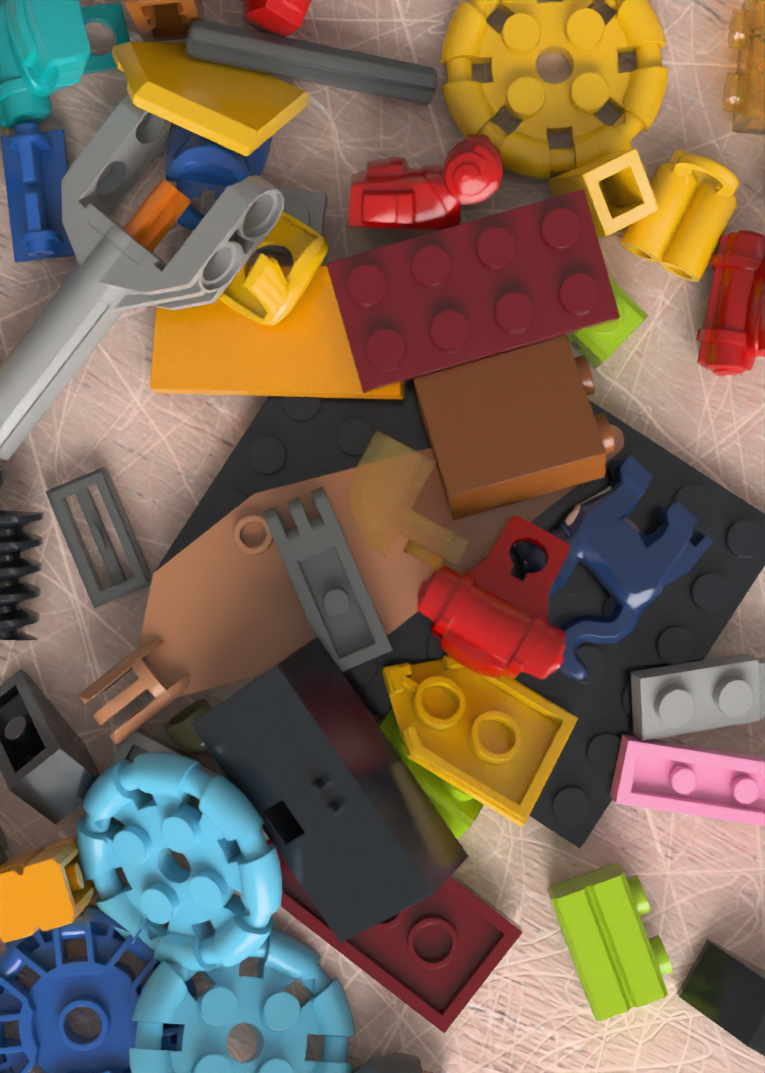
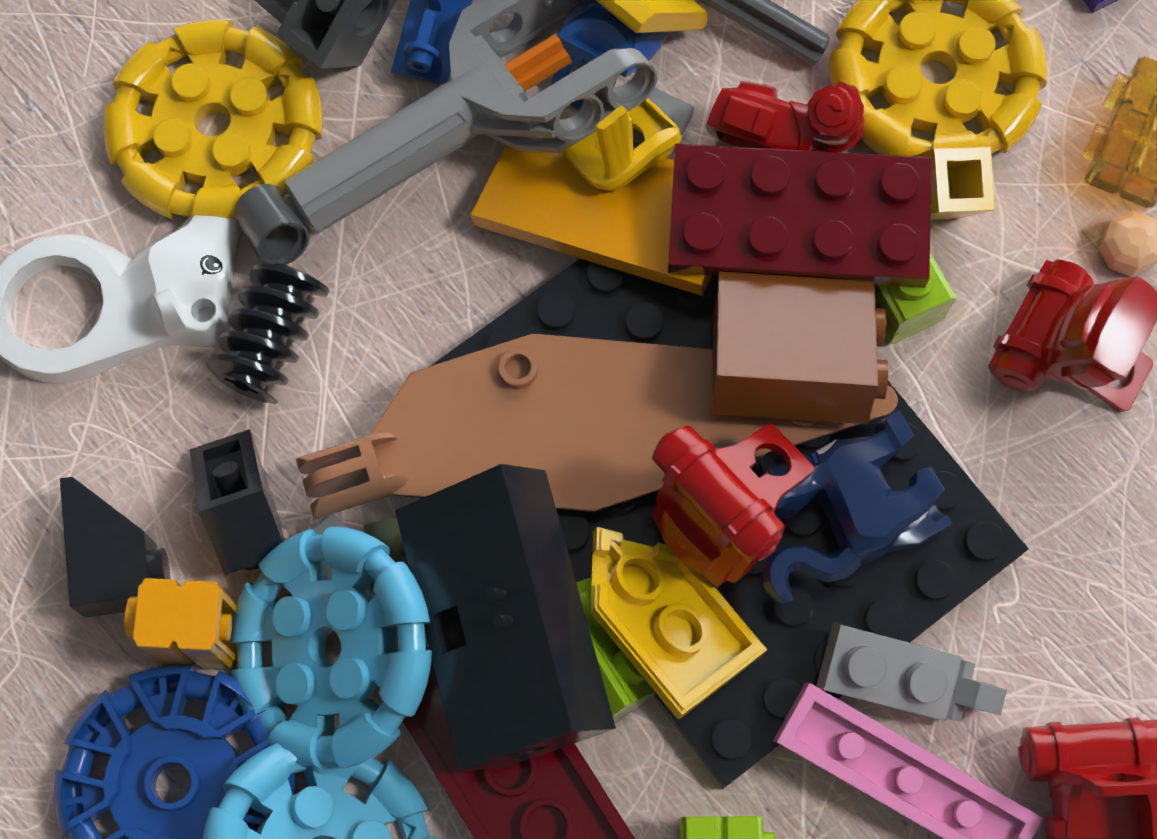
camera: 15 degrees right, 15 degrees down
(79, 552) = (374, 385): dark grey tile -> none
(329, 582) = (574, 432): dark grey hinge -> none
(382, 501) = (657, 366): clear yellow brick -> none
(693, 212) = (1020, 232): yellow piece -> none

